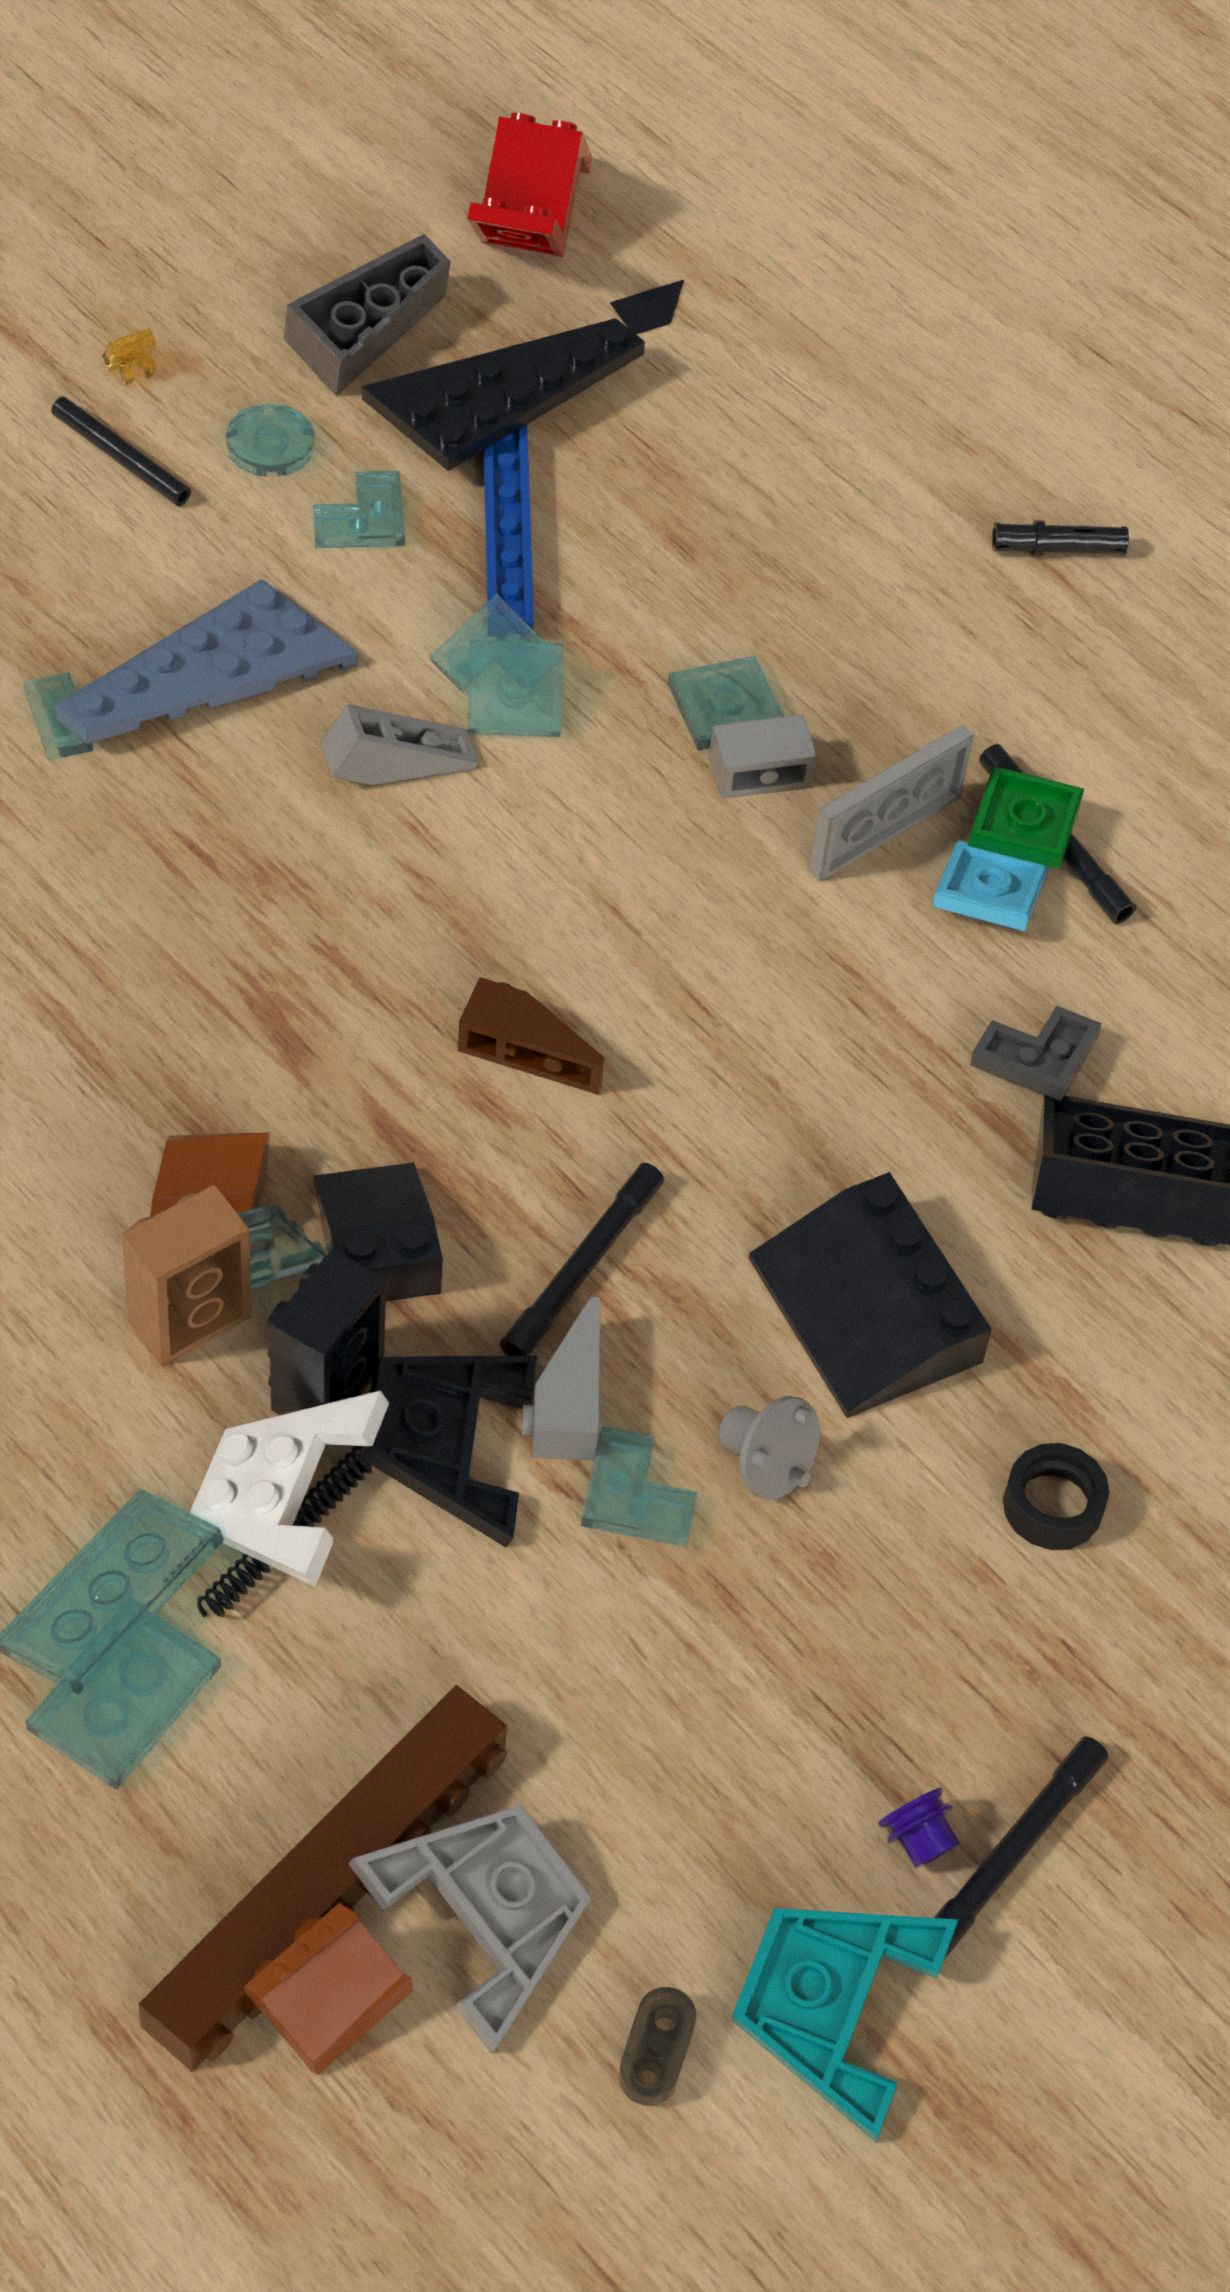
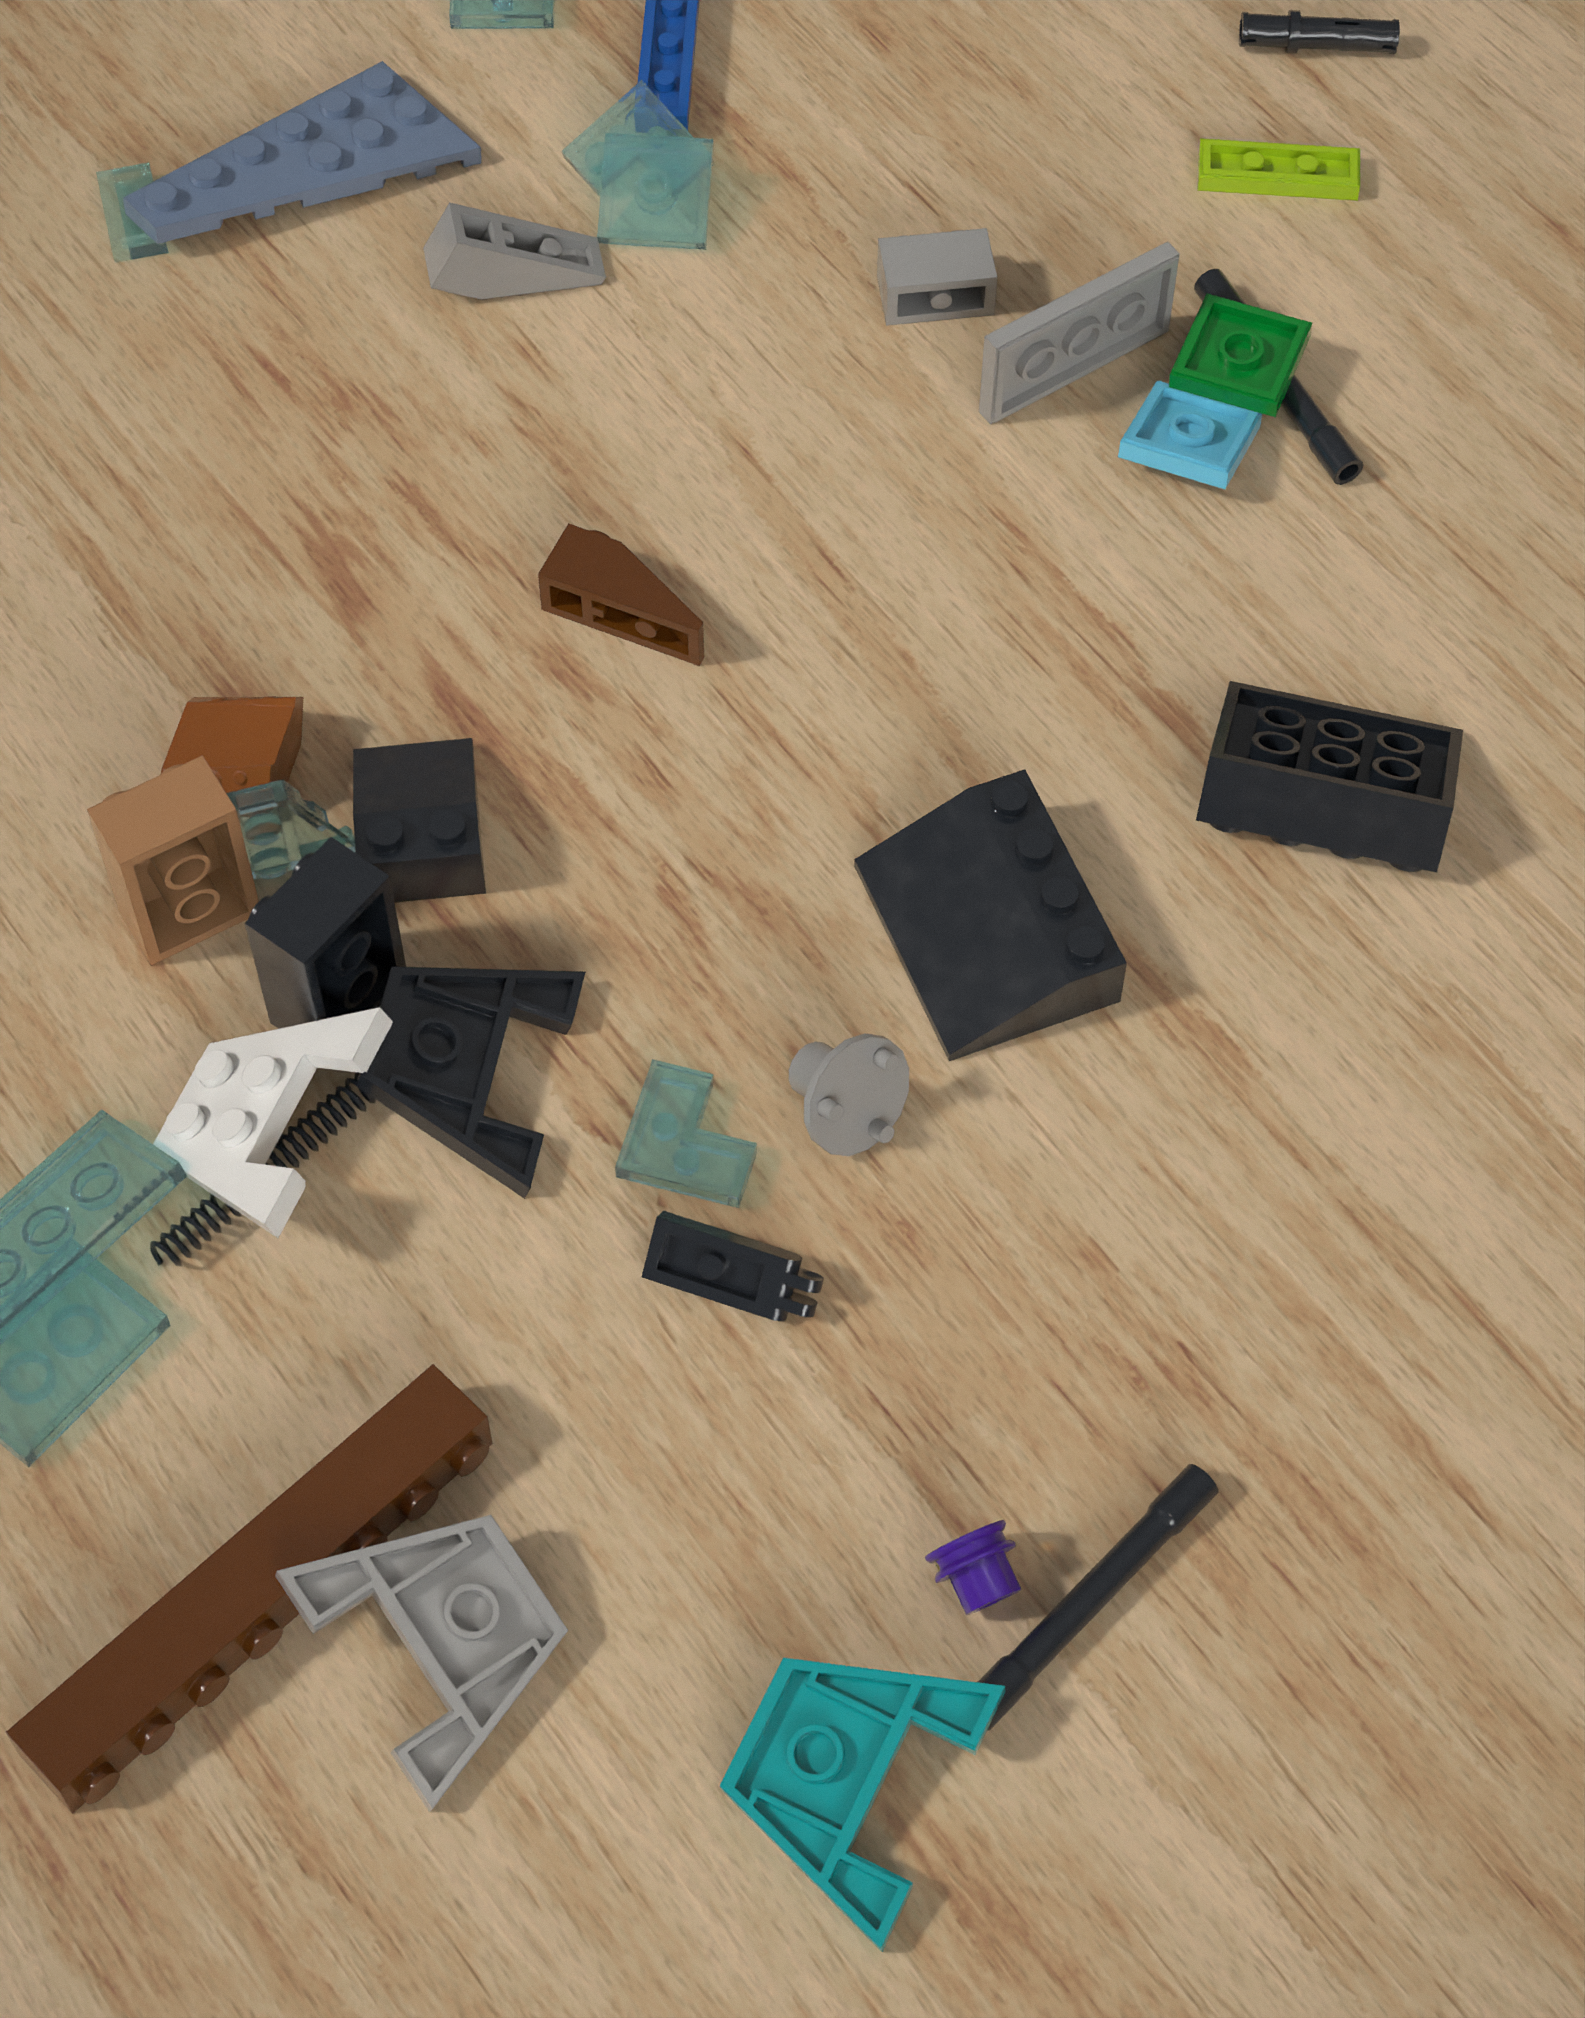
camera: 10 degrees right, 5 degrees up
(328, 1987) = (233, 1725): dark orange slope -> none
(537, 1319) = (592, 928): black piece -> none
(567, 1394) = (615, 1016): light grey slope -> none
(656, 2048) = (626, 1821): clear smoke plate -> none
(688, 1596) = (729, 1268): none -> black hinge
(722, 695) = (899, 204): clear light blue tile -> none
(1038, 656) = (1278, 169): none -> lime tile
(1039, 1062) = (1229, 645): dark grey plate -> none
(1063, 1462) = (1201, 1126): black tyre -> none

